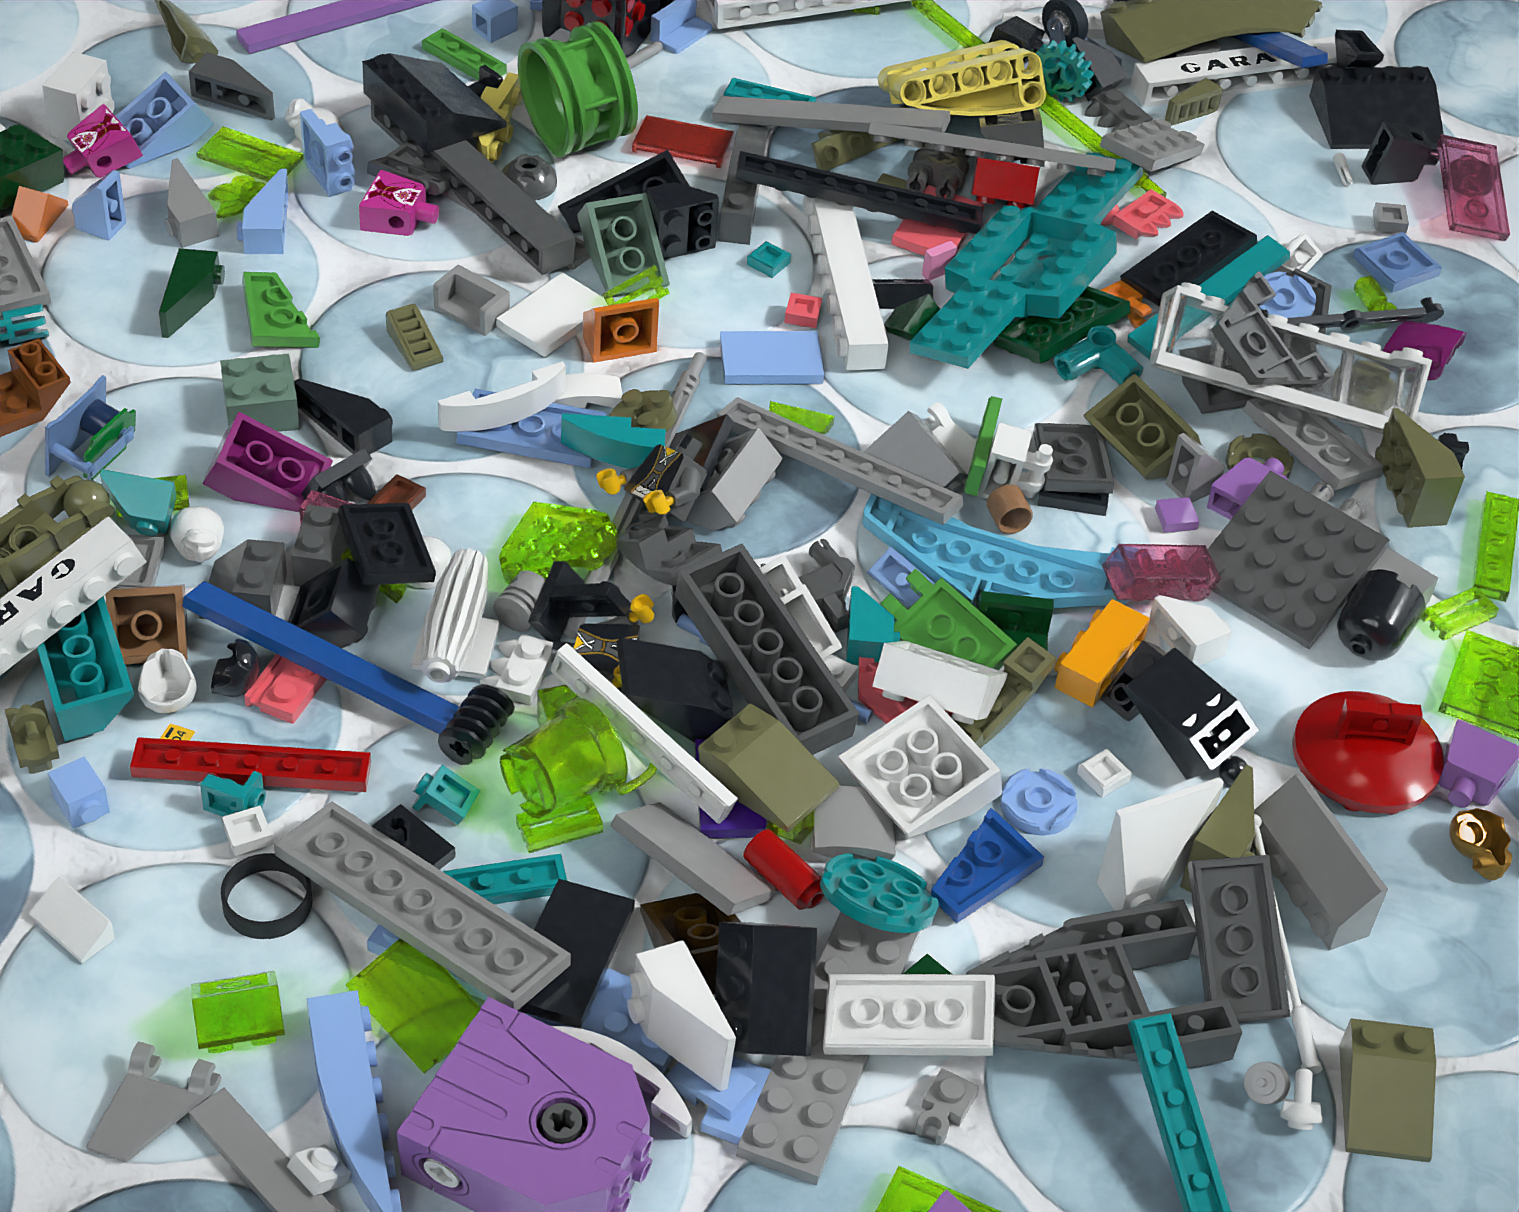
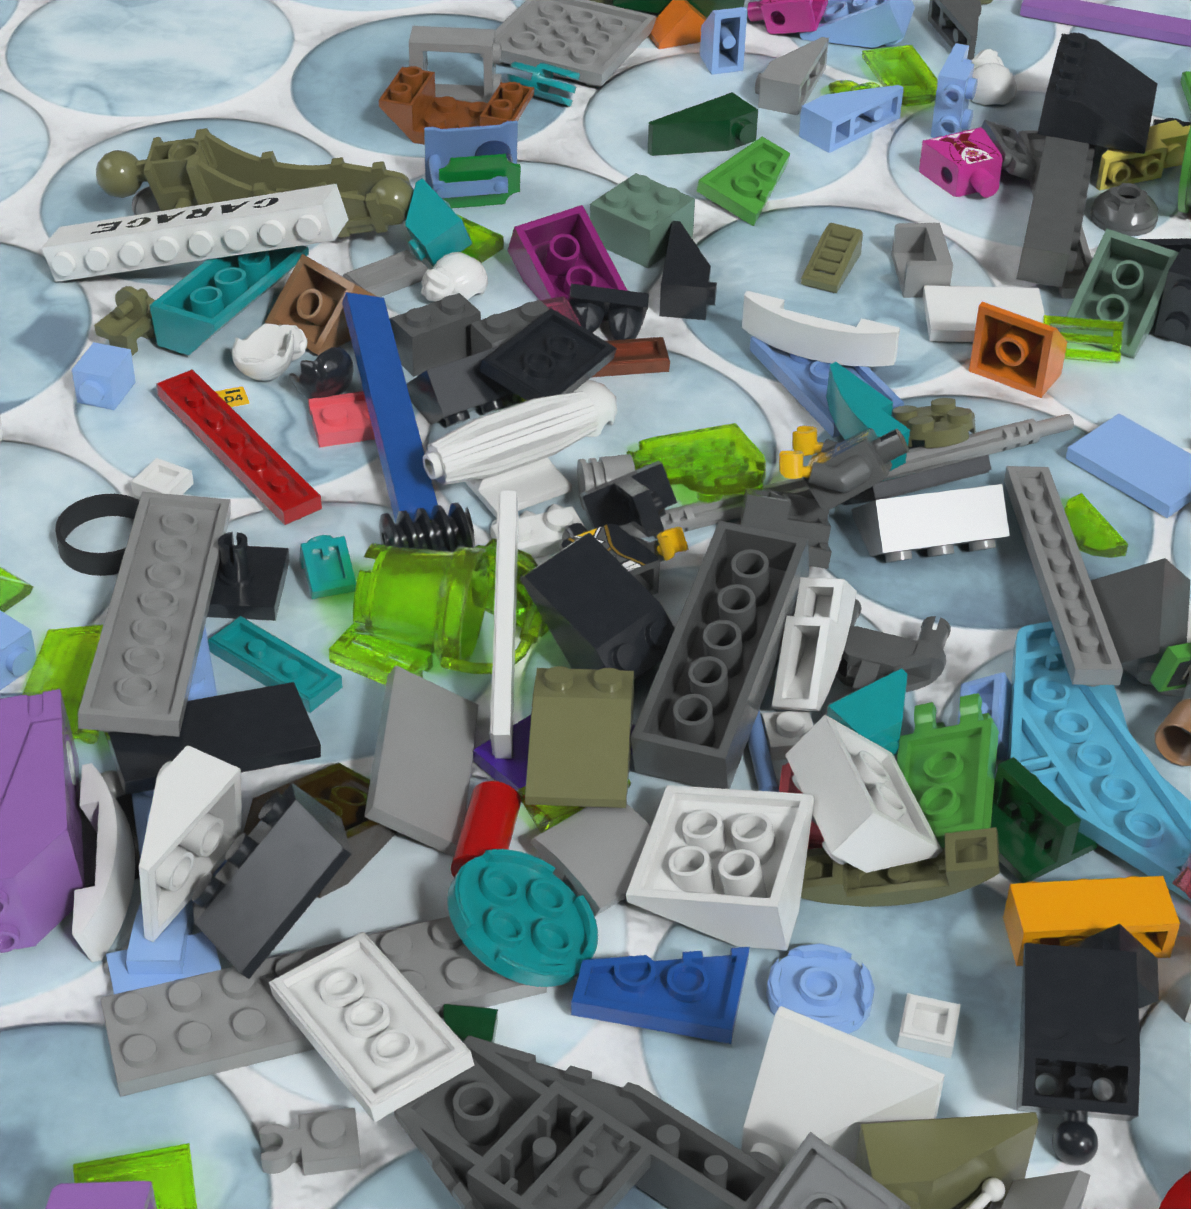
camera: 55 degrees right, 5 degrees down
(228, 797) = (193, 455): teal bracket -> none
(591, 388) = (919, 378): white slope -> none

